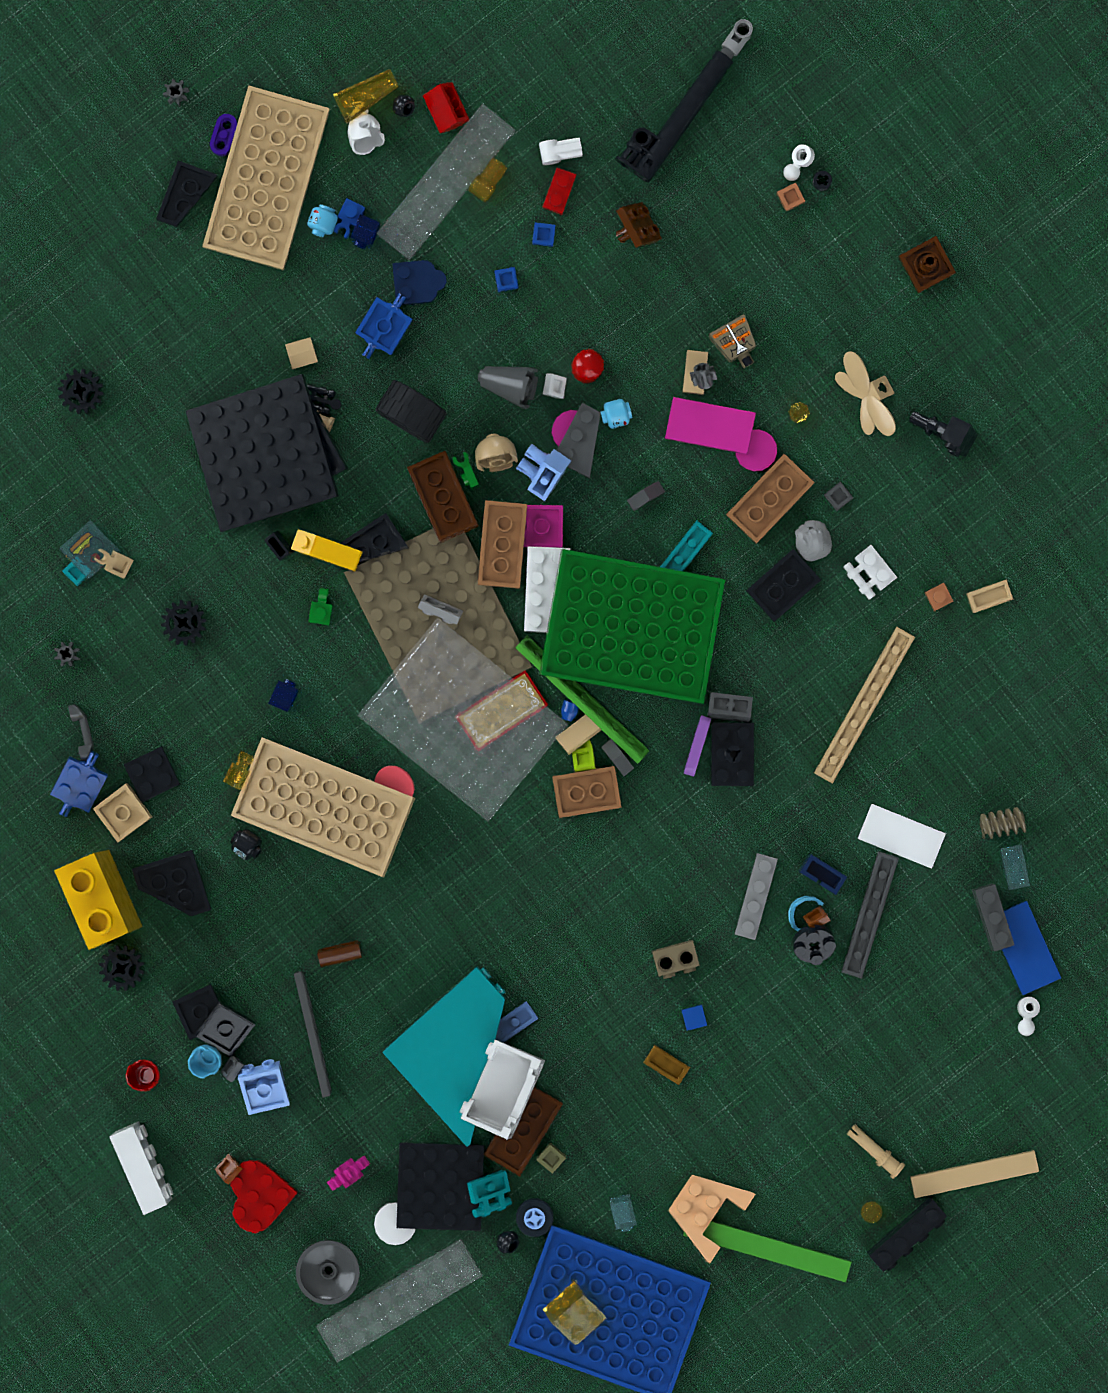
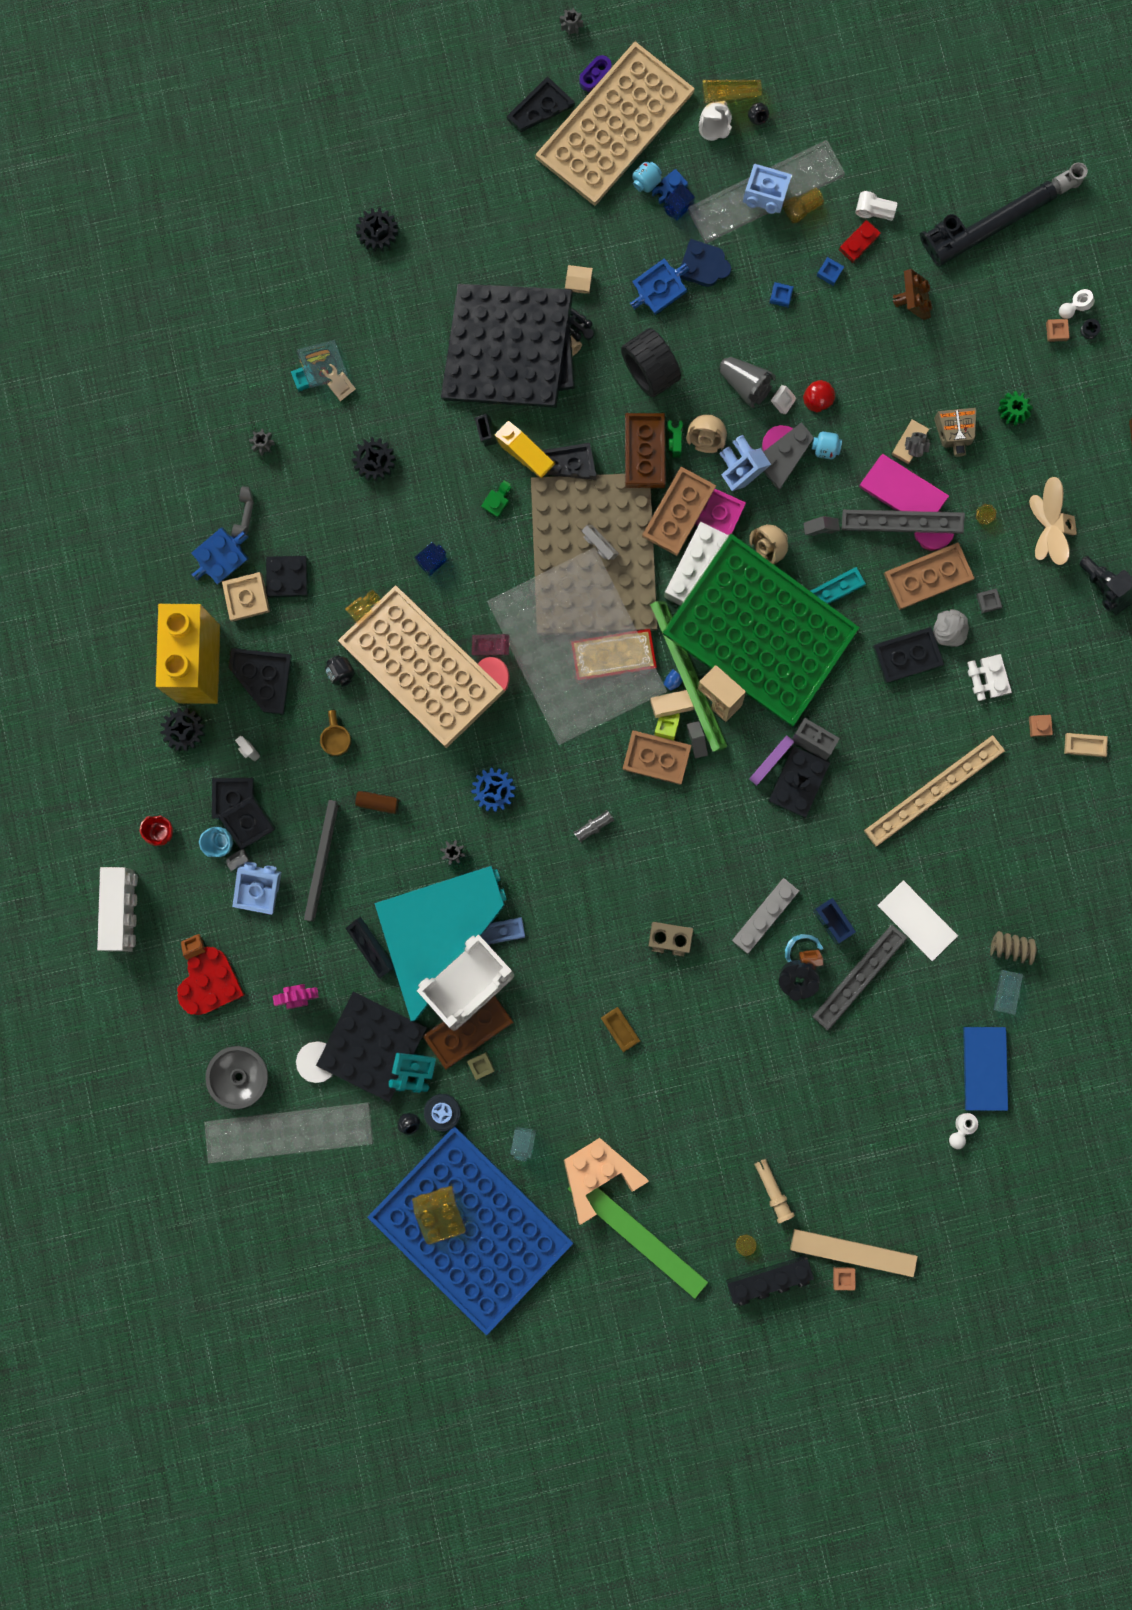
camera: 25 degrees right, 5 degrees down
(193, 960) = (247, 749): none -> white plate
(272, 910) = (335, 738): none -> pearl gold piece
(379, 755) = (490, 644): none -> clear pink plate
(396, 1094) = (370, 947): none -> black plate
(437, 886) = (483, 795): none -> blue gear
(437, 965) = (455, 857): none -> dark grey gear
(446, 107) = (793, 130): red brick -> none
(446, 183) = (766, 189): none -> light blue plate
(556, 884) = (593, 826): none -> dark grey pin
(604, 536) = (770, 542): none -> tan cylinder
(621, 703) = (723, 692): none -> tan panel
(694, 1017) = (663, 998): blue tile -> none
(722, 458) = (903, 521): none -> dark grey tile
(785, 302) = (1015, 401): none -> green gear
(975, 1202) = (843, 1278): none -> nougat plate
(993, 917) = (970, 1027): dark grey brick -> none

